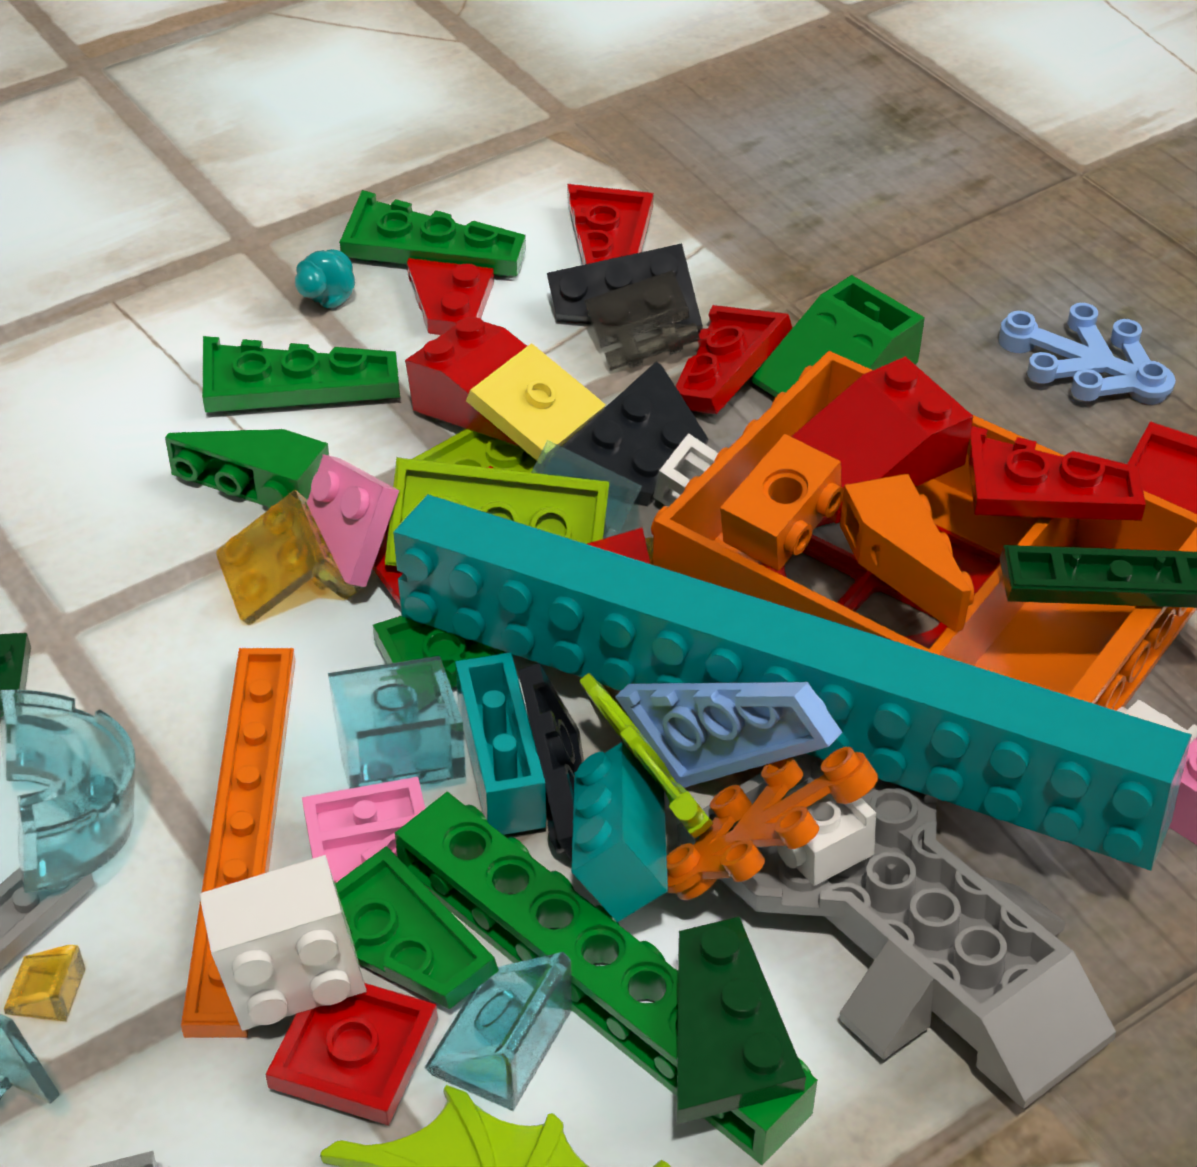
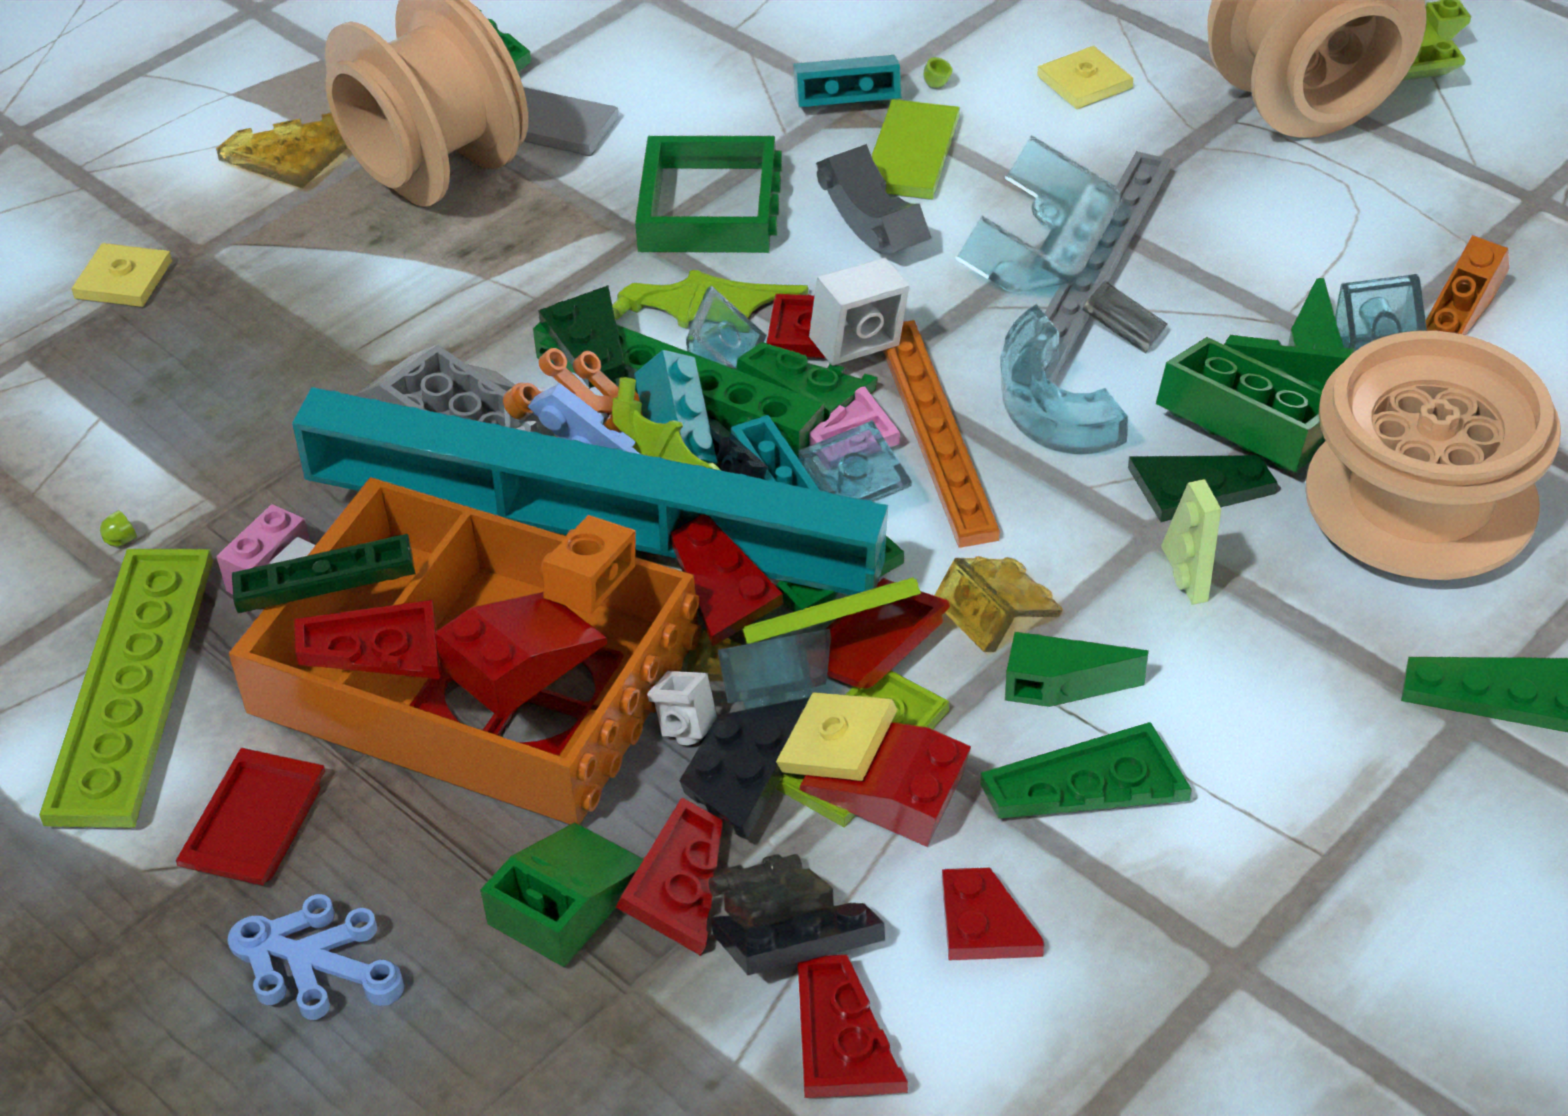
camera: 170 degrees right, 0 degrees up
(39, 511) = (1193, 541): none -> yellowish green wing
(47, 984) = (998, 324): clear yellow slope -> none
(325, 277) = (1116, 886): teal animal -> none
(351, 515) = (939, 580): bright pink wing -> none
(398, 233) = (1048, 980): green wing -> none
(901, 545) = (495, 557): orange slope -> none

